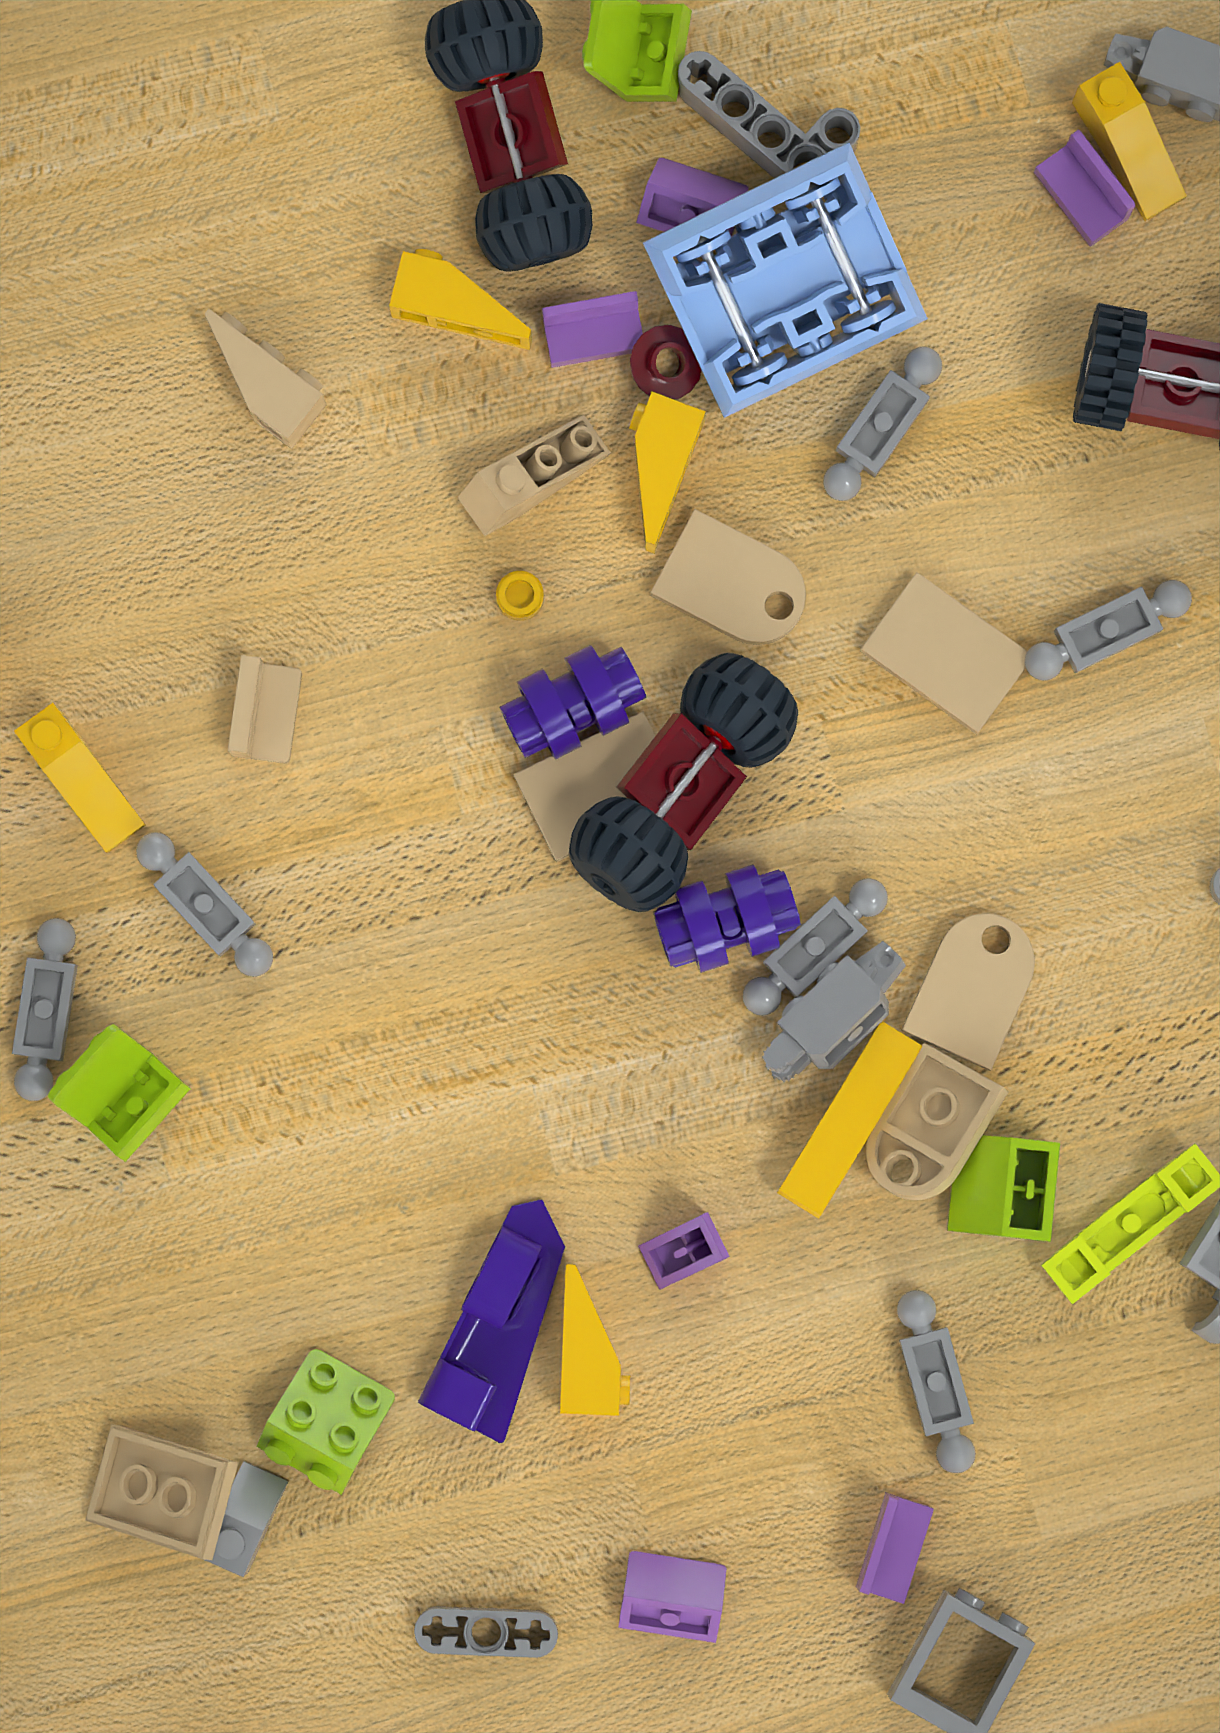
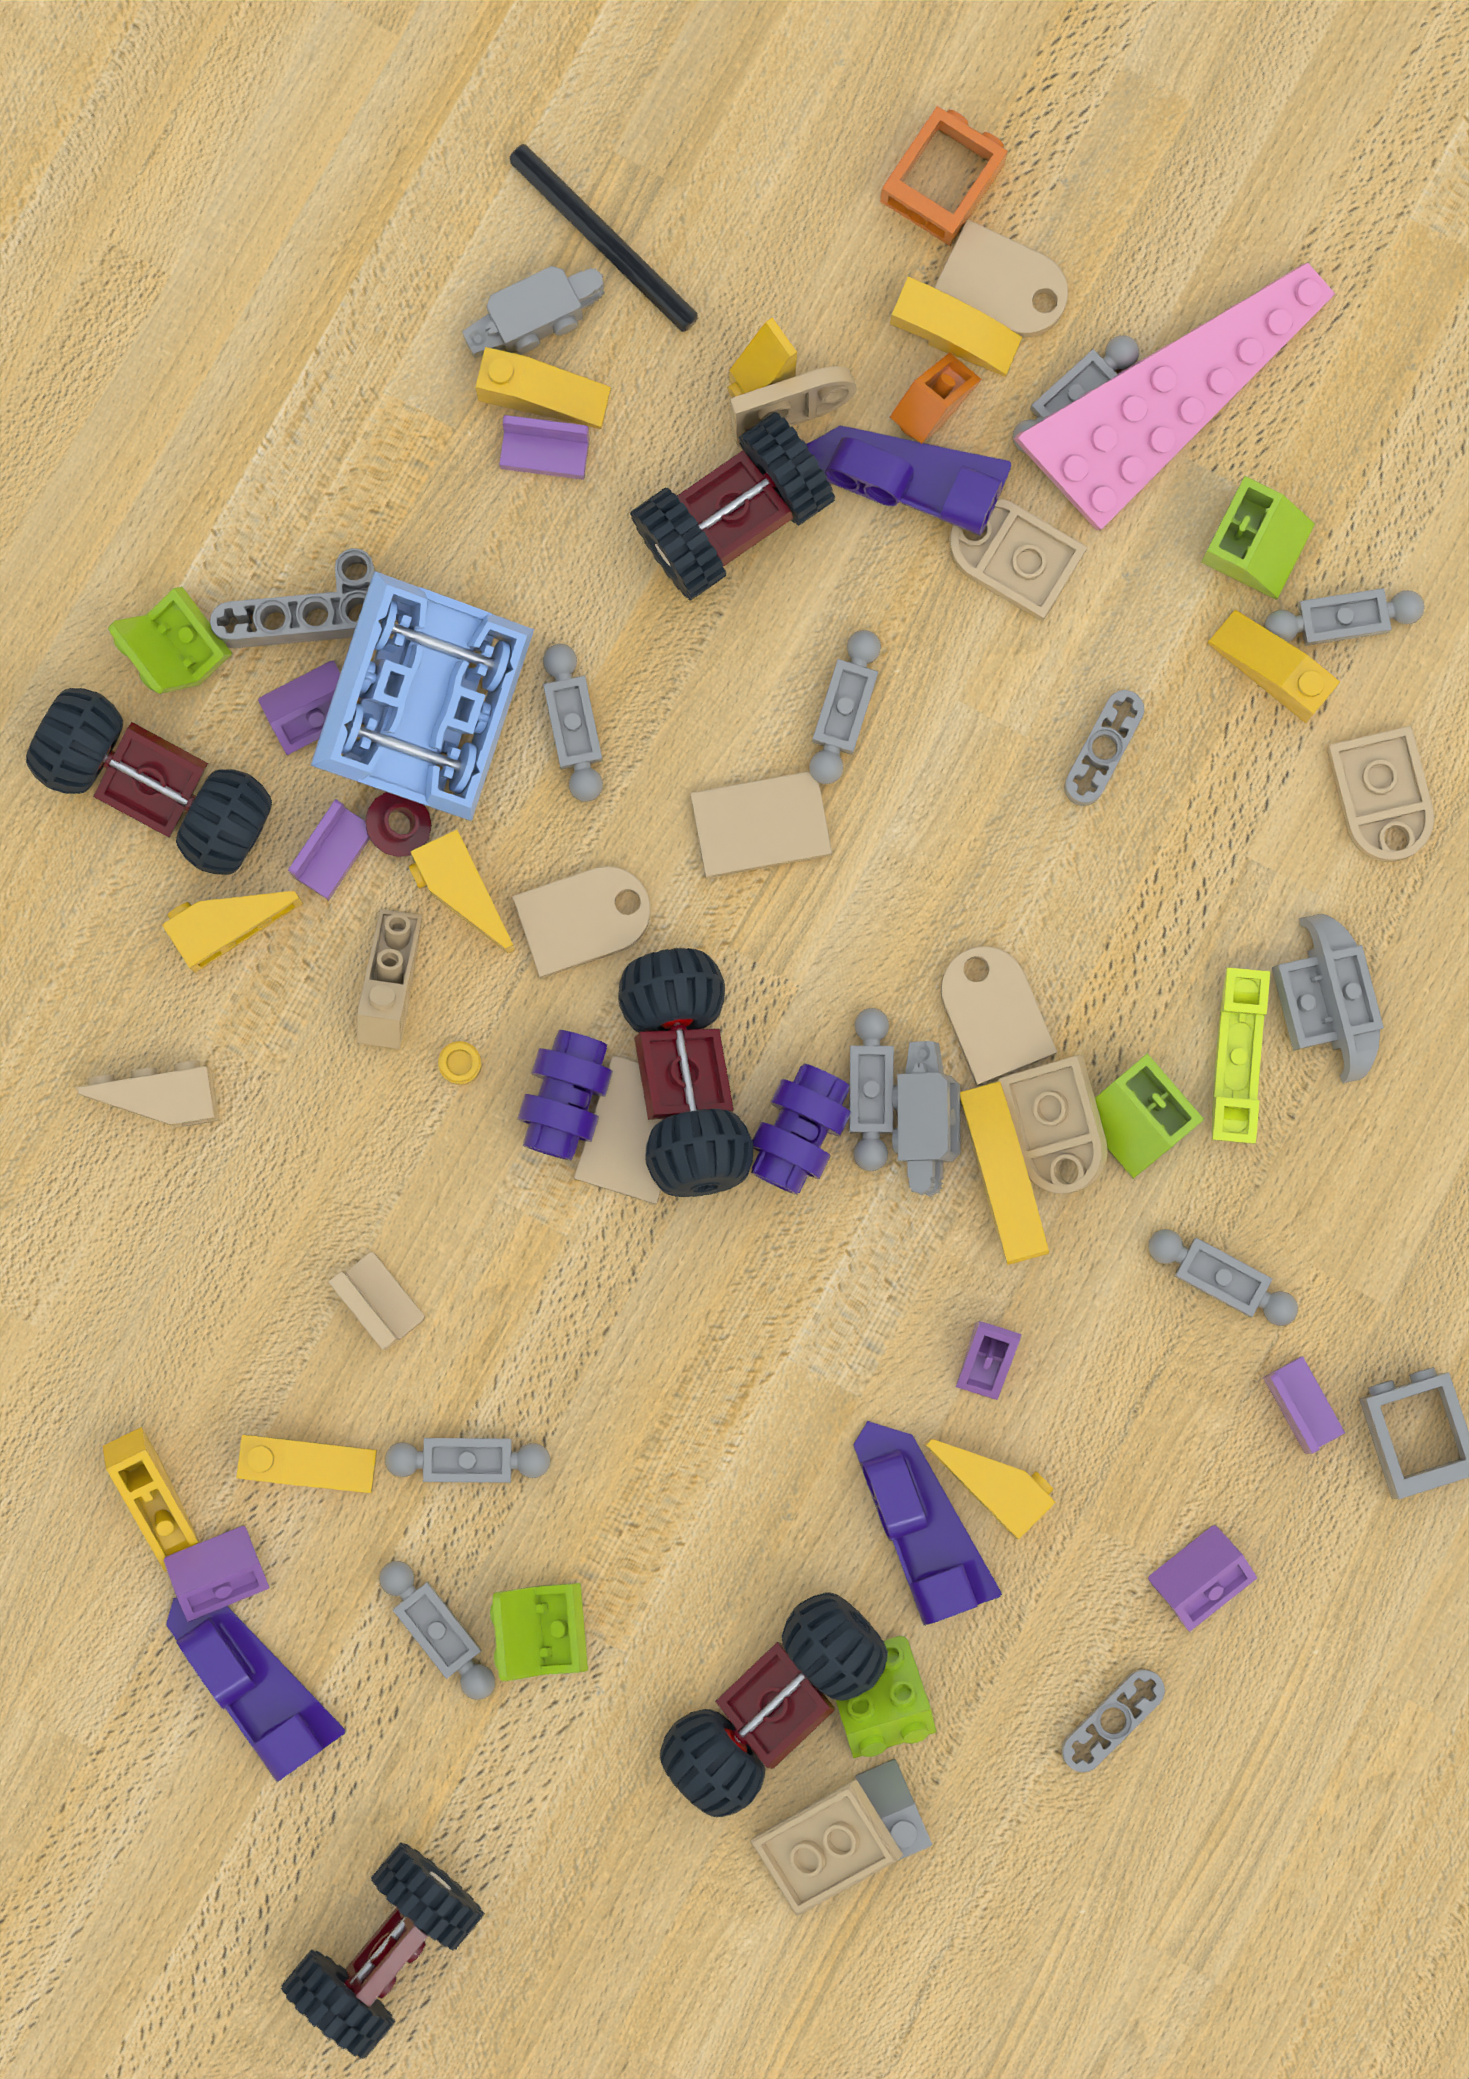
camera: 50 degrees left, 0 degrees up
(237, 1339) = (773, 1705): none -> black plate

